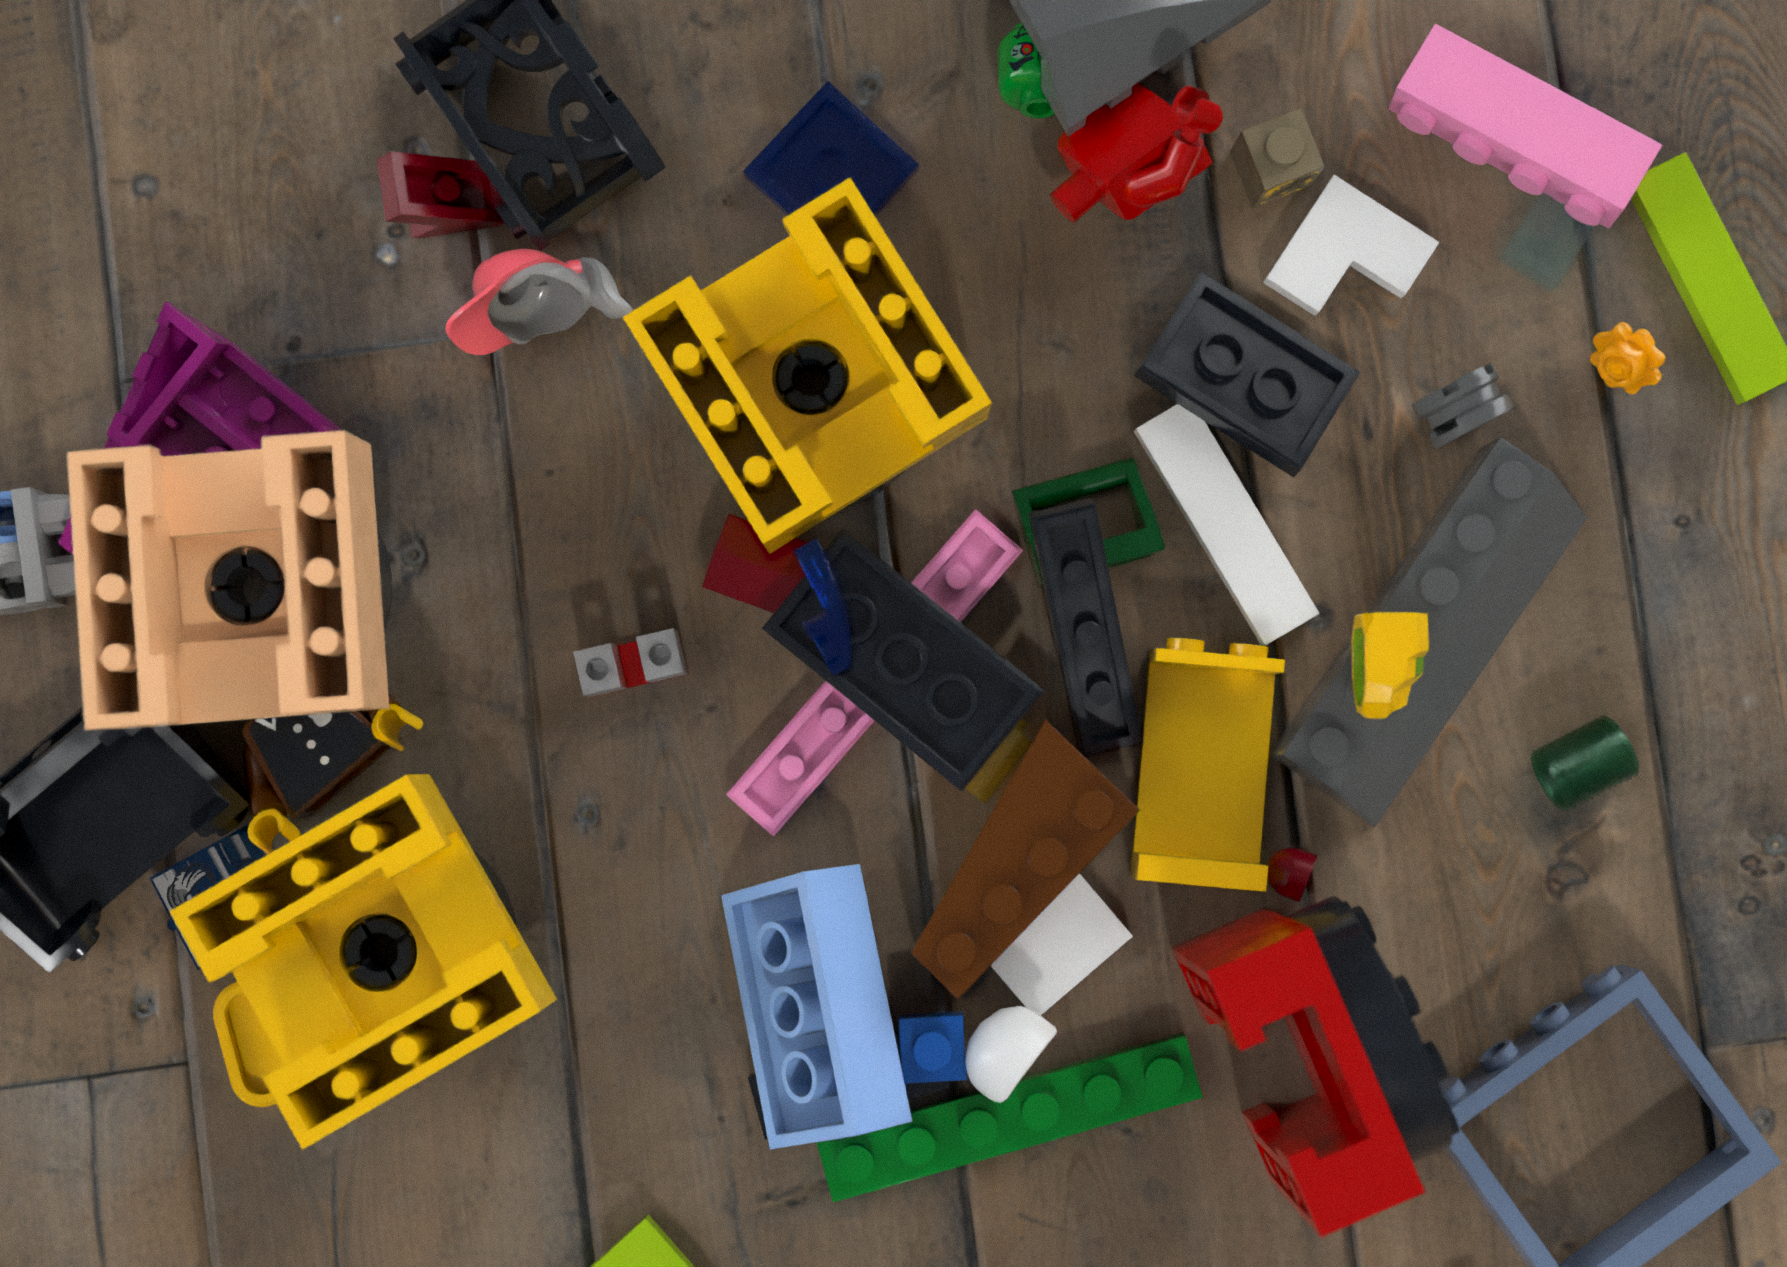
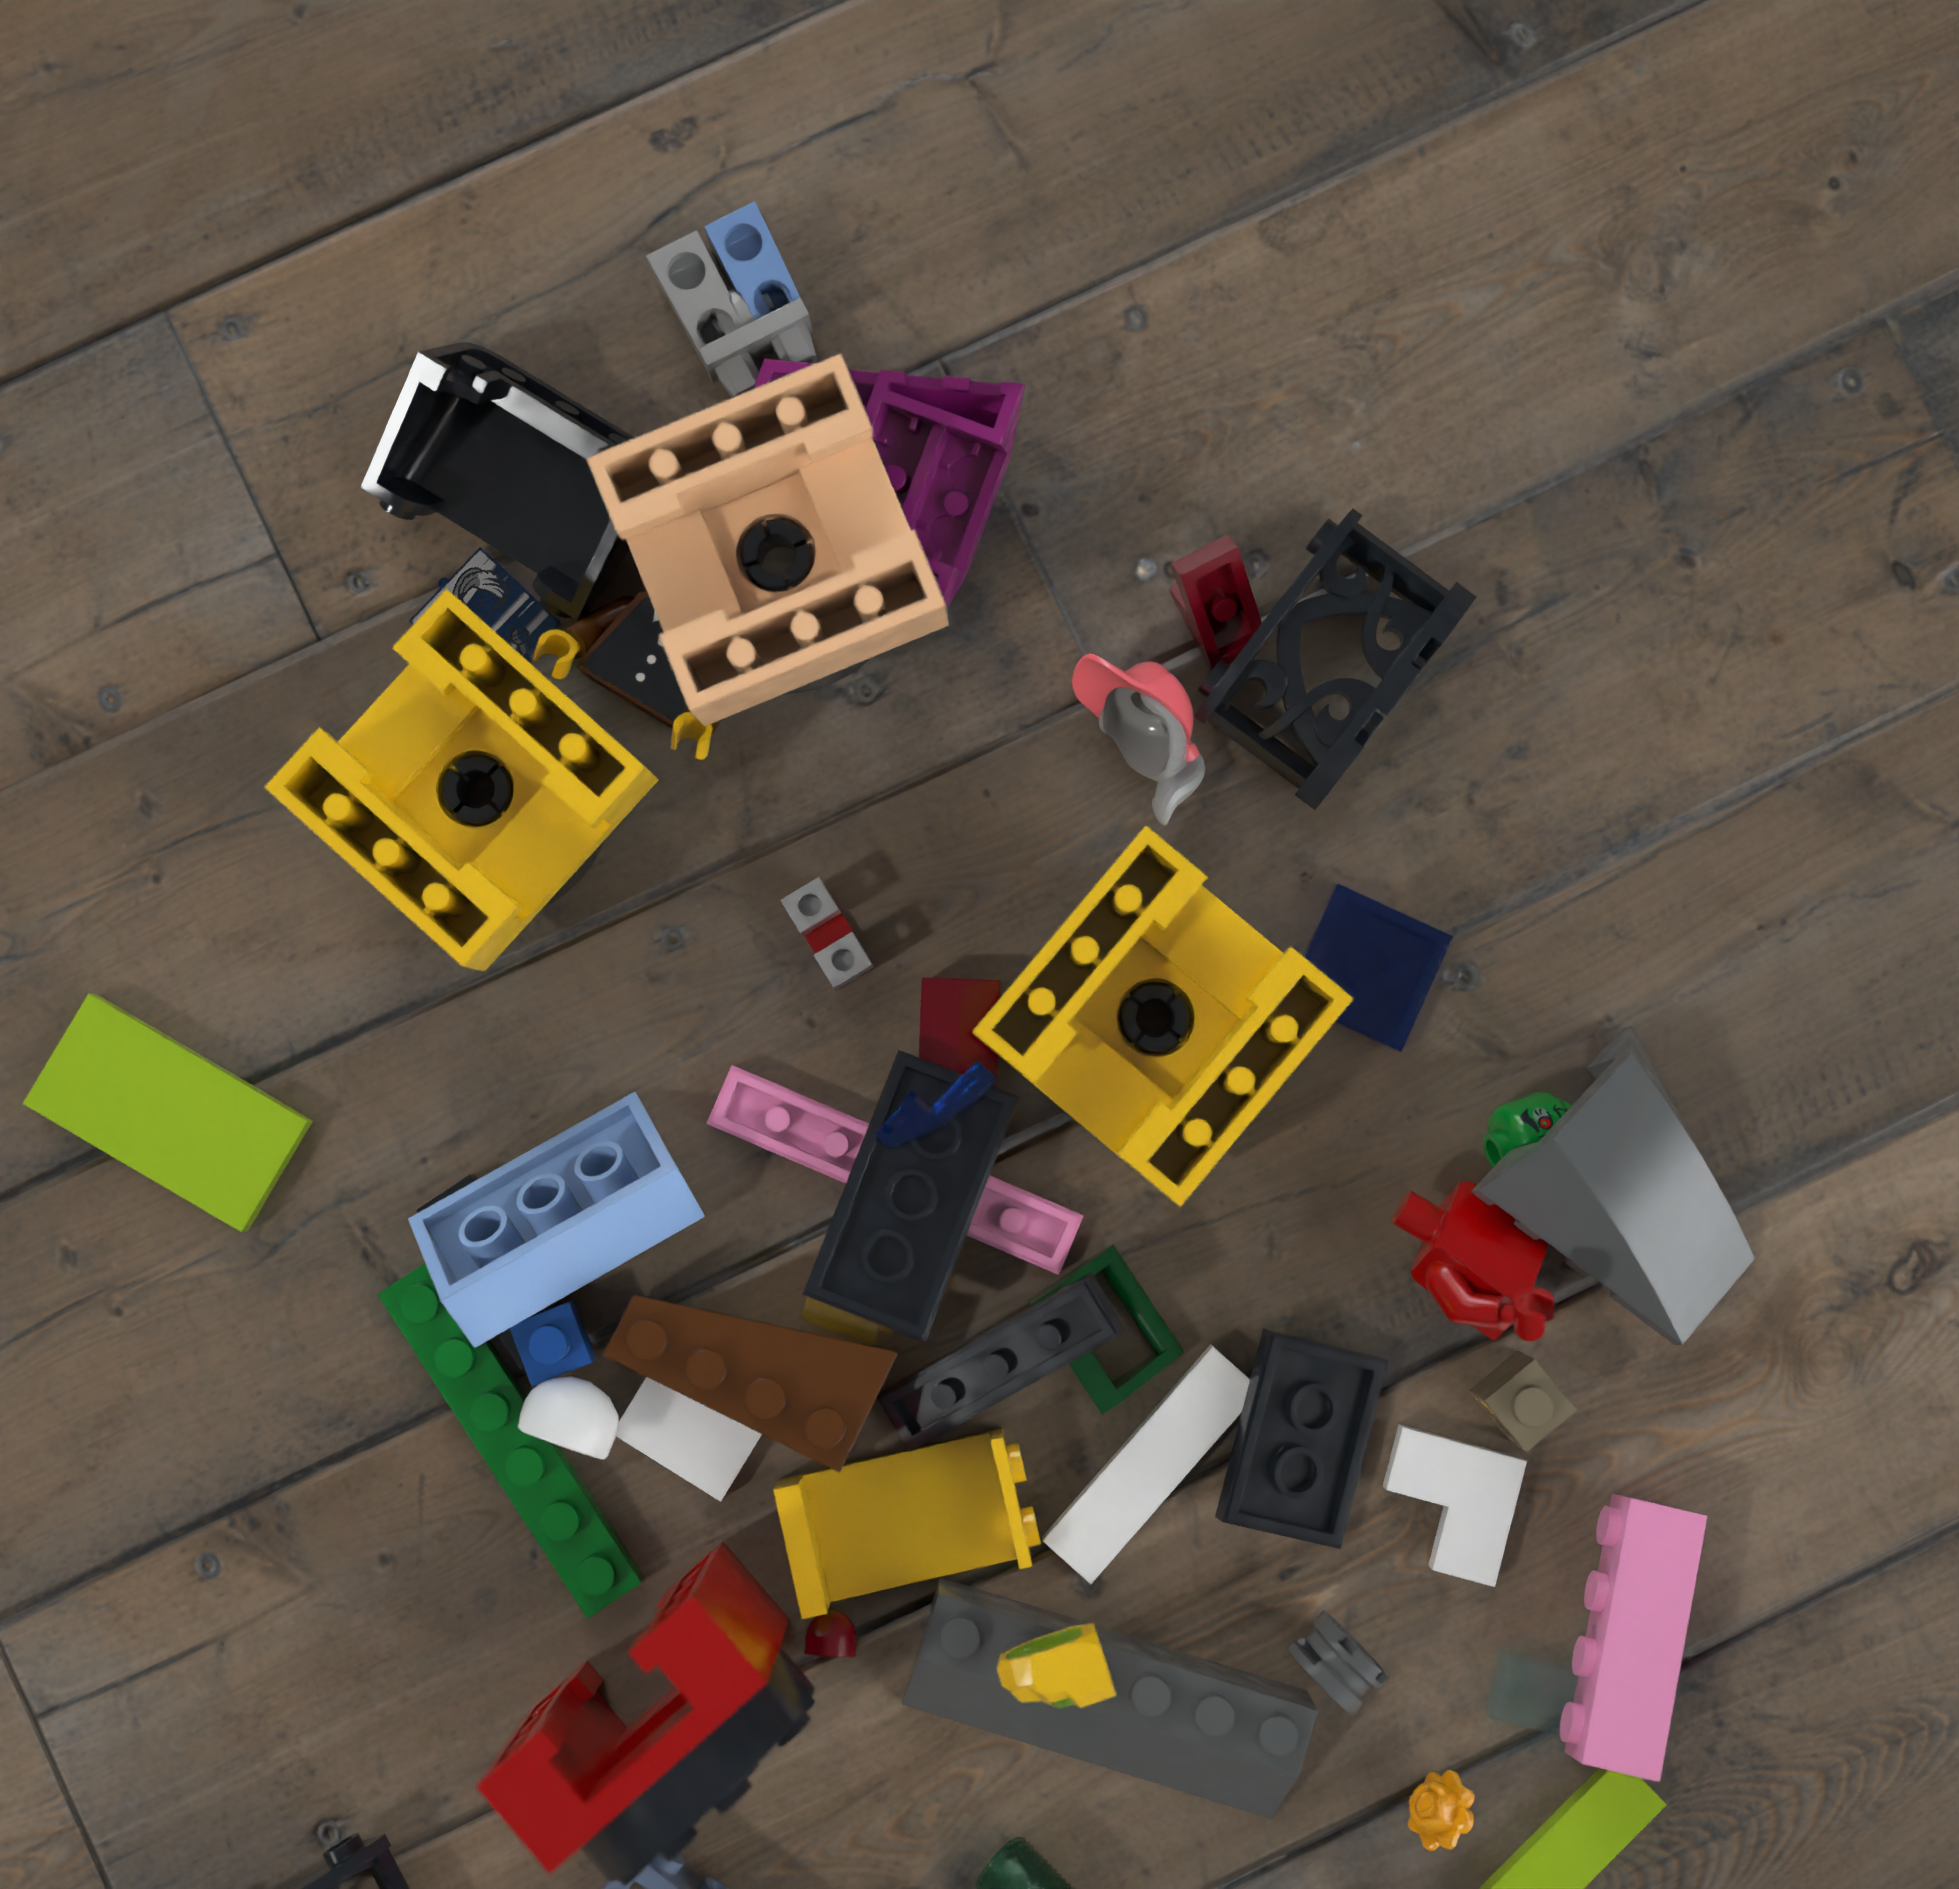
camera: 70 degrees right, 0 degrees up
(245, 1047) = (349, 693): yellow tile -> none

